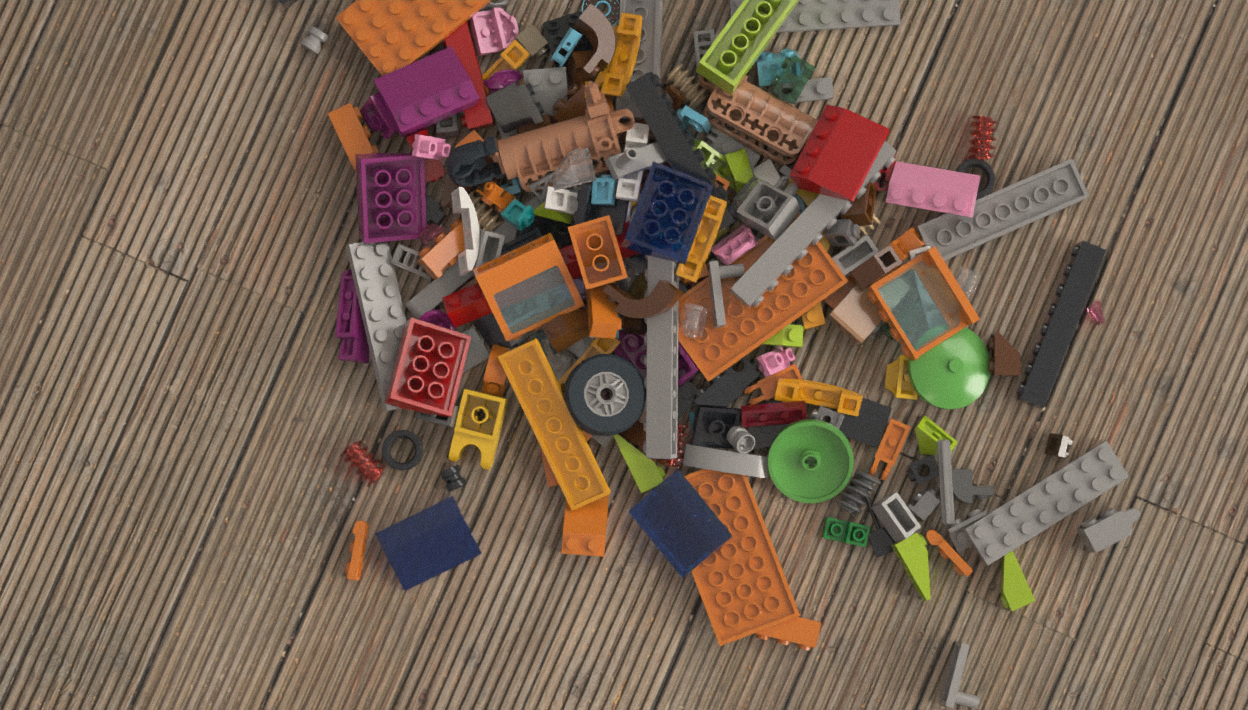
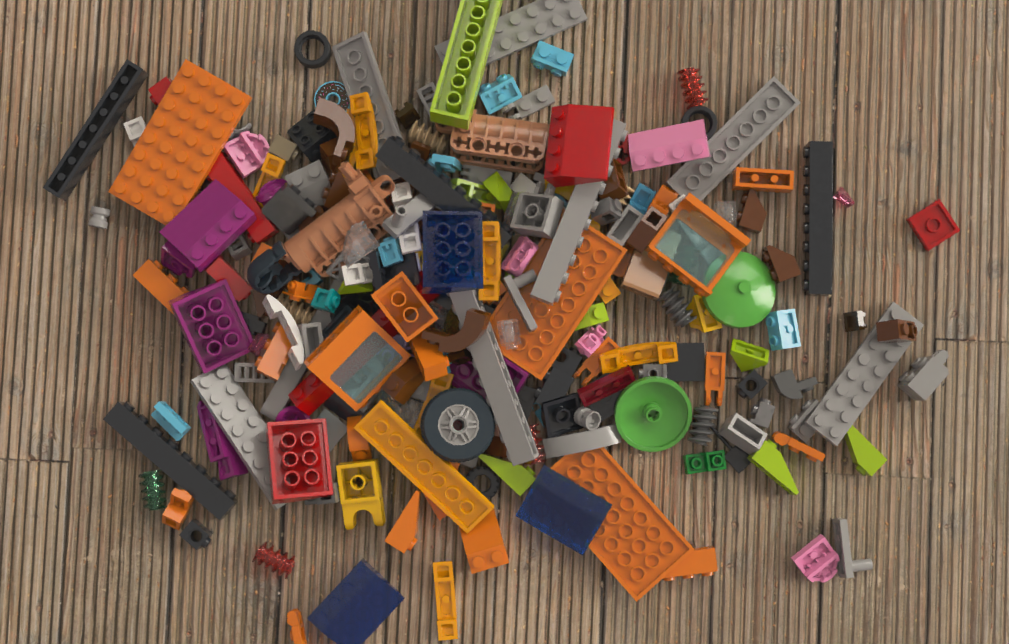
camera: 20 degrees left, 0 degrees up
(265, 343) = (153, 490): none -> clear green piece
(283, 371) = (178, 508): none -> orange brick
(284, 402) = (188, 534): none -> black brick
(295, 319) = (170, 459): none -> black brick
(309, 278) = (170, 420): none -> medium azure bracket
(402, 434) = (290, 531): black tyre -> none
(430, 147) = (228, 271): bright pink hips -> none
(453, 478) = (356, 544): black wheel -> none
(510, 480) = (406, 527): none -> orange slope
(523, 571) = (445, 600): none -> light orange slope
(568, 43) = (313, 138): medium azure bar -> none
(619, 461) = (492, 476): none -> black tyre
(674, 54) = (407, 115): none -> dark brown tile
(797, 81) = (519, 98): clear green brick -> none
(847, 52) = (552, 59): none -> medium azure bracket
(877, 360) = (676, 307): none -> dark grey piece
(885, 233) = (641, 198): none -> dark azure bracket
(923, 677) = (817, 560): none -> bright pink slope
(945, 480) = (773, 388): light grey axle -> none
(979, 426) = (783, 329): none -> medium azure bracket
(994, 293) = (752, 213): none -> reddish brown slope
(1018, 262) = (763, 180): none -> orange brick
(1095, 471) = (896, 331): none -> reddish brown slope
(1179, 377) = (933, 225): none -> red tile

